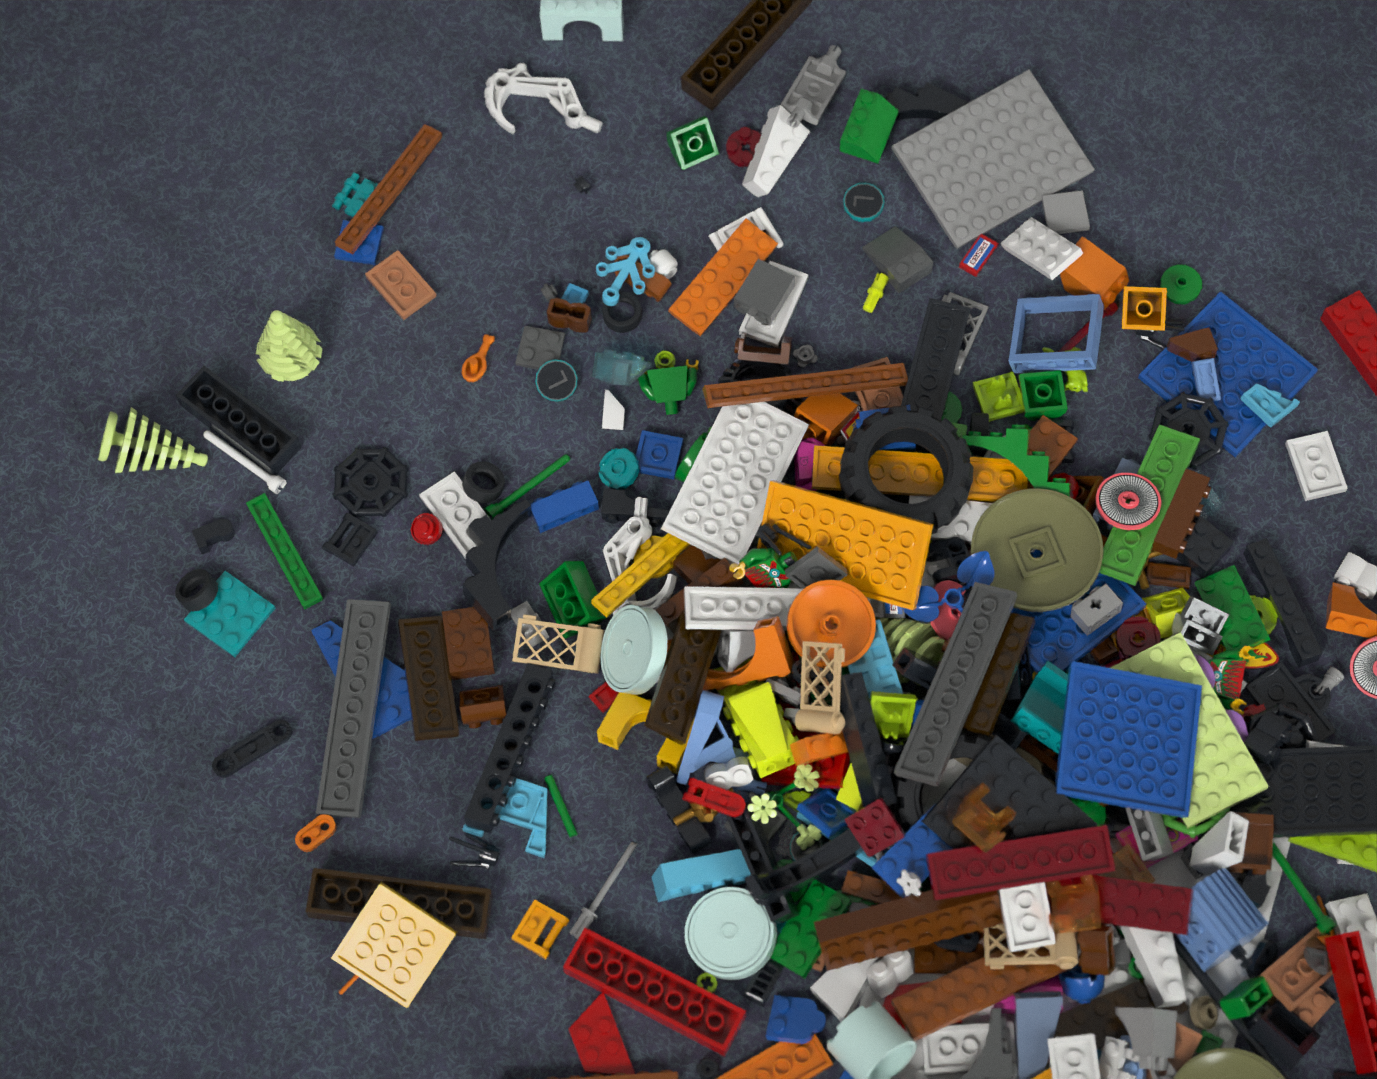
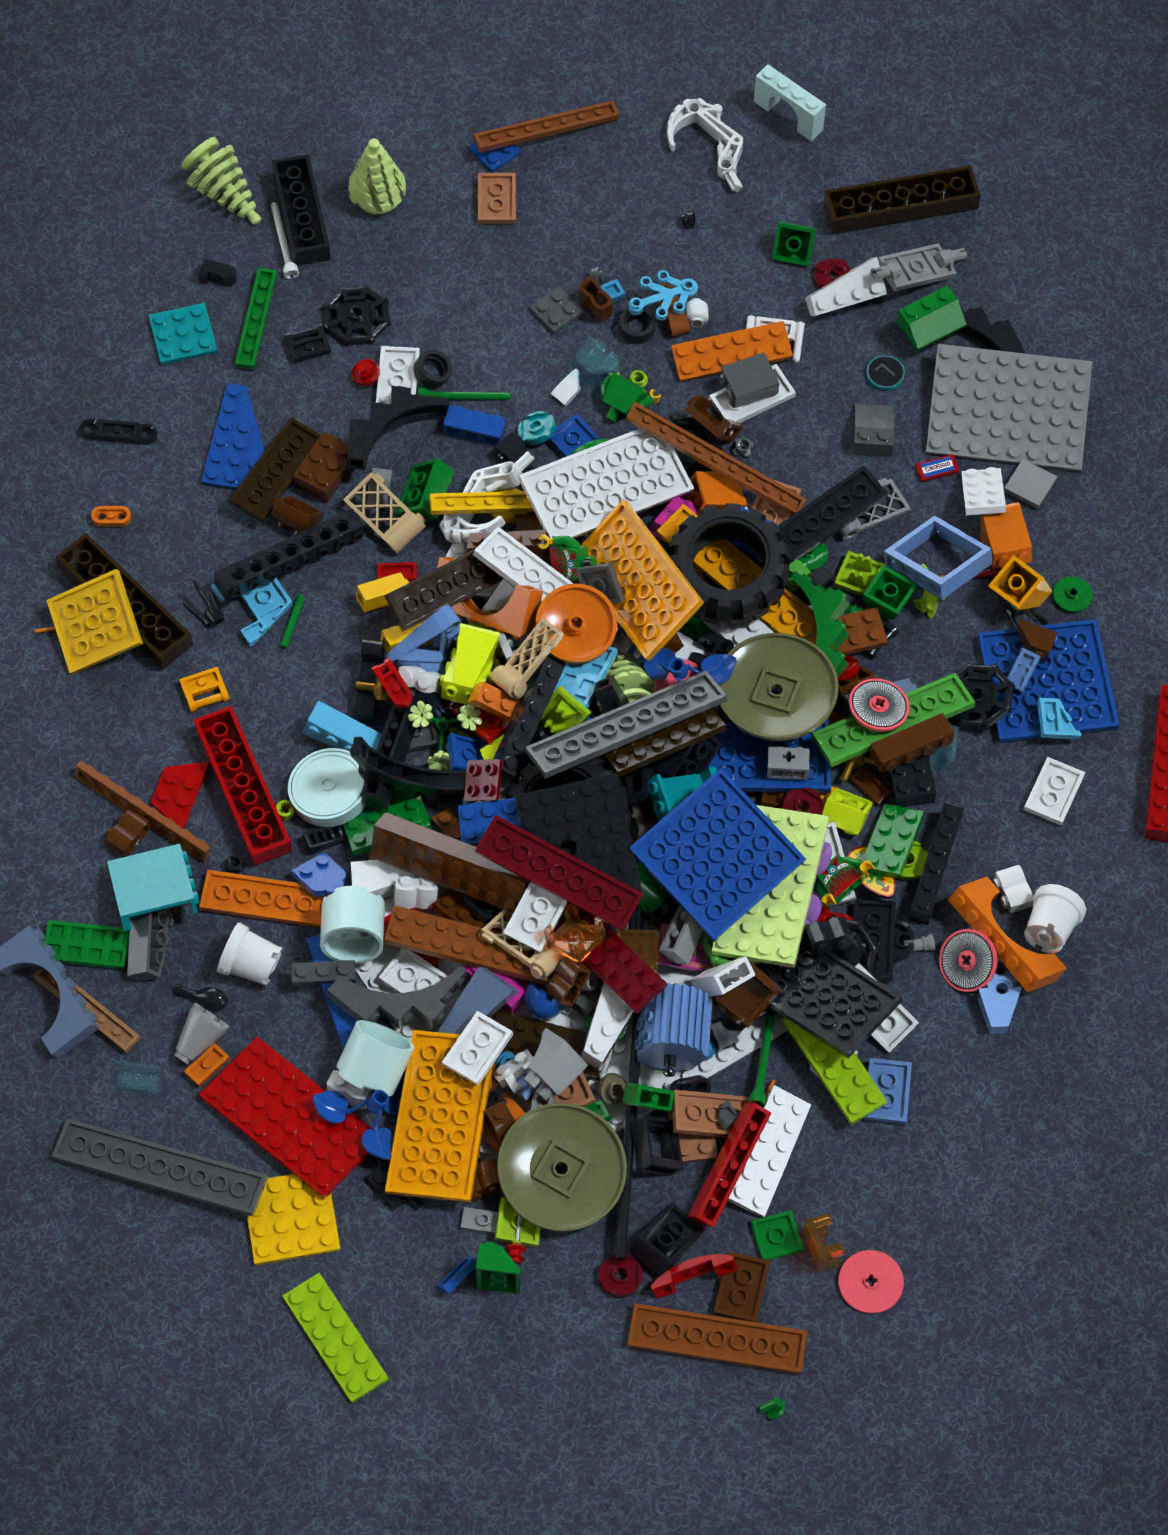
camera: 35 degrees right, 5 degrees down
(189, 583) = (172, 300): black tyre -> none
(353, 708) = (207, 452): dark grey plate -> none
(362, 193) = (523, 106): teal plate -> none
(476, 365) = (501, 288): orange piece -> none
(556, 380) = (547, 338): black tile -> none
(588, 914) = (244, 705): light grey piece -> none
(633, 649) = (428, 547): light aqua brick -> none
(769, 536) = (591, 539): black plant -> none
(875, 292) = (834, 440): neon yellow axle -> none
(910, 883) = (472, 832): white plate -> none
(979, 821) = (551, 818): clear orange panel -> none
(1200, 624) = (854, 828): brick -> none

